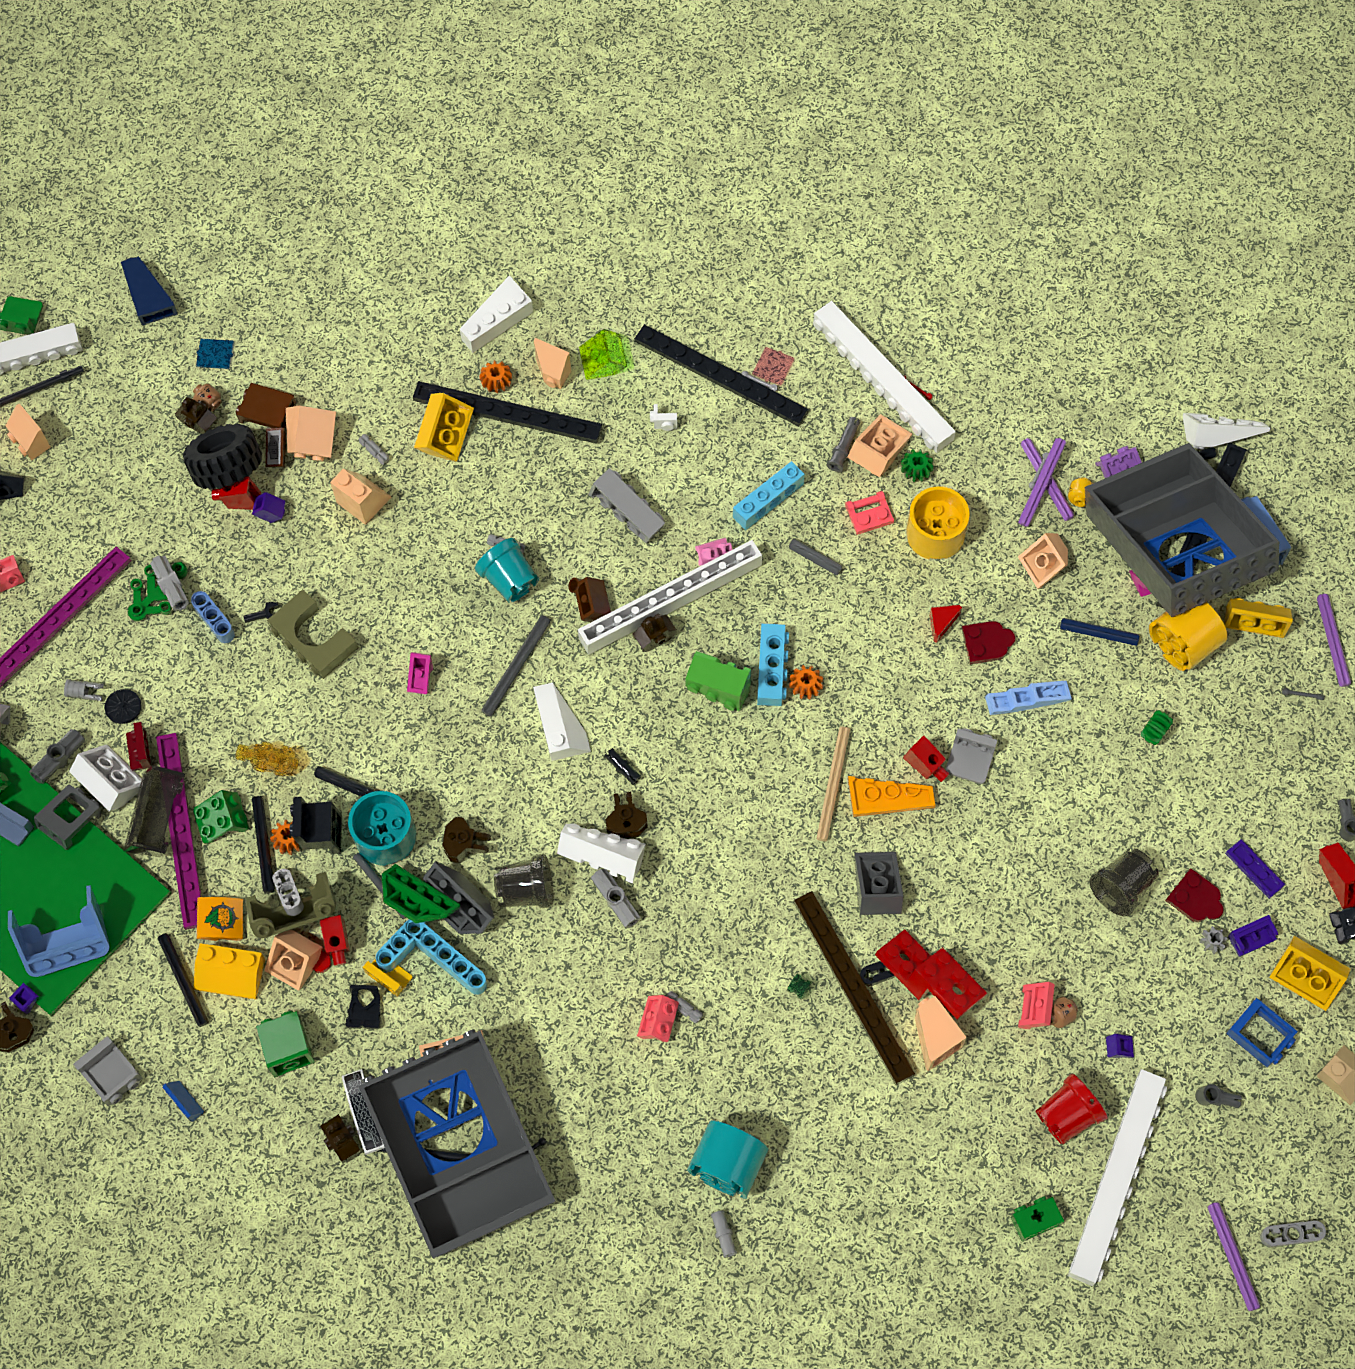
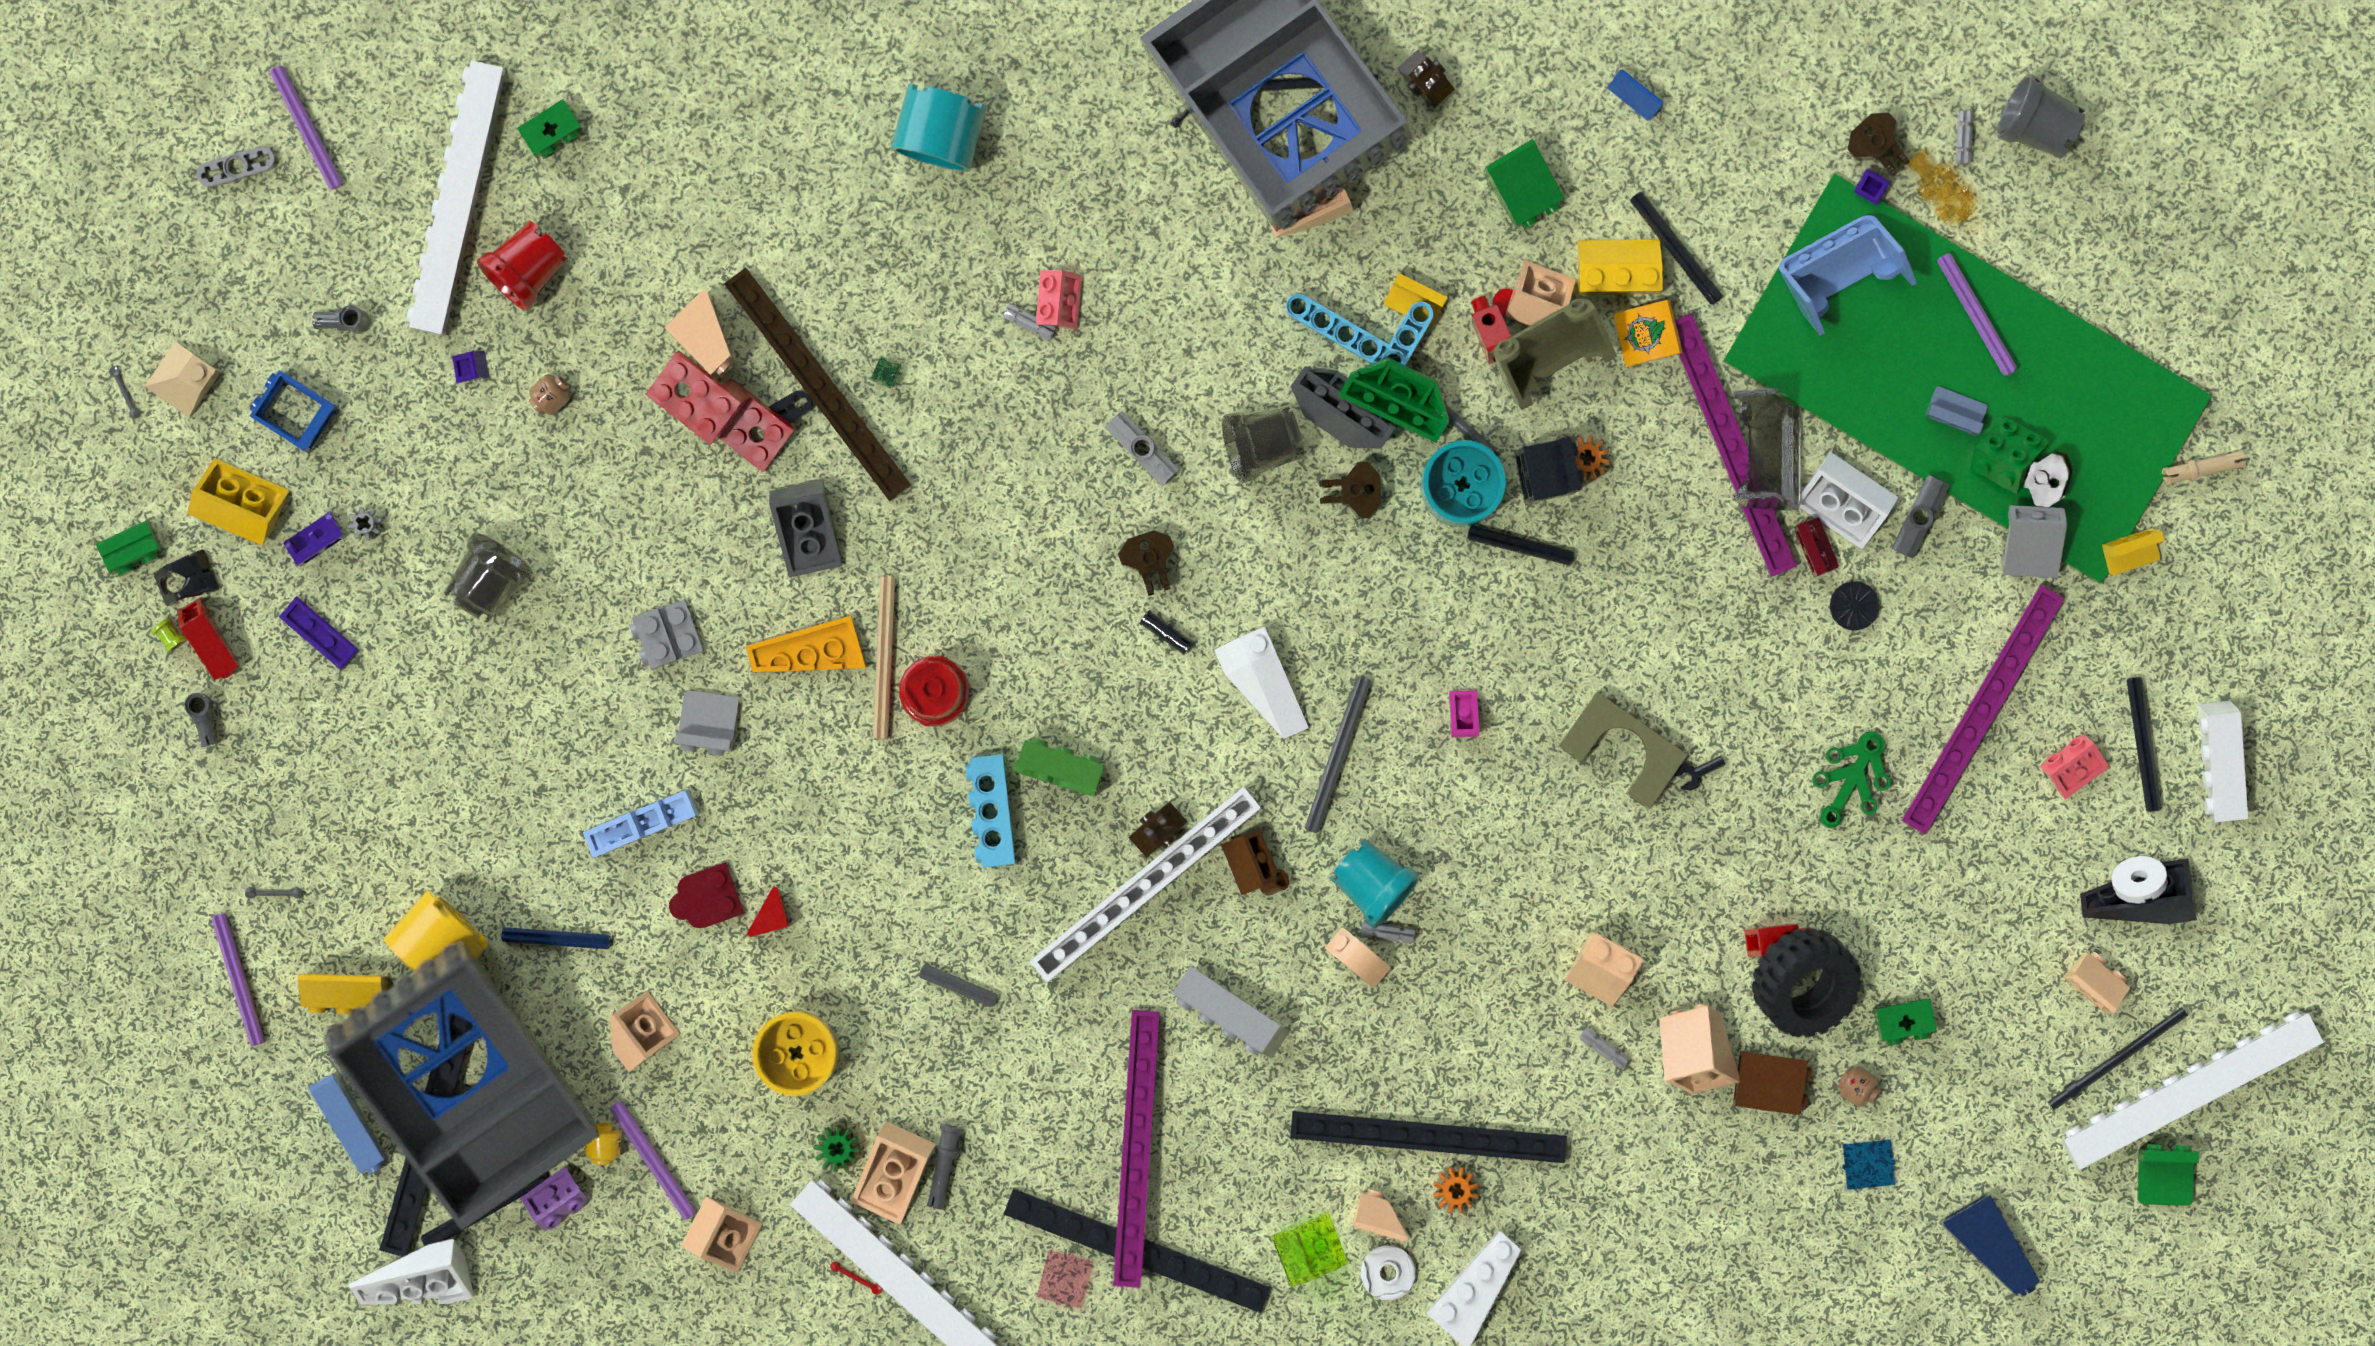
camera: 165 degrees right, 20 degrees up
(59, 829) = (1892, 415): dark grey window -> none
(80, 689) = (1918, 617): light grey hinge -> none
(108, 1071) = (1737, 113): light grey panel -> none
(164, 433) = (1888, 1020): none -> green brick
(169, 583) = (1834, 786): light grey piece -> none
(195, 415) = (1866, 1052): dark brown hinge -> none
(209, 609) = (1778, 755): medium blue beam -> none
(220, 815) = (1682, 471): green bracket -> none
(263, 844) = (1618, 445): black axle -> none
(268, 507) = (1727, 926): dark purple brick -> none
(275, 447) = (1742, 1022): slope -> none
(275, 755) = (1630, 561): clear yellow brick -> none
(283, 887) = (1556, 376): light grey beam -> none
(363, 1016) = (1432, 241): black piece -> none
(363, 1120) = (1421, 144): black slope -> none
(444, 427) = (1511, 1092): yellow slope -> none
(531, 527) = (1358, 957): none -> light nougat brick
(555, 327) = (1399, 1284): none -> white tile
(602, 850) = (1169, 504): white wedge -> none
(663, 421) = (1199, 1157): white bracket -> none
(708, 433) = (1136, 1149): none -> magenta plate
(712, 550) = (1099, 964): bright pink hips -> none
(723, 1234) = (930, 46): light grey pin -> none
(768, 495) = (1036, 1064): medium azure brick -> none
(774, 387) = (1058, 1243): light grey hinge -> none
(800, 751) = (934, 691): none -> red piece
(806, 689) = (949, 797): orange gear -> none
(871, 518) = (888, 1058): coral plate -> none
(921, 756) = (771, 710): red torso -> none
(993, 824) = (666, 635): none -> light grey plate
(1006, 424) = (721, 1234): none -> light nougat slope
(1032, 484) = (658, 1188): light grey hinge -> none
(1037, 1005) = (581, 395): coral plate -> none
(1042, 482) = (659, 1148): medium lavender axle -> none
(1156, 727) = (465, 803): green gear -> none
(1196, 898) = (391, 580): dark red plate -> none

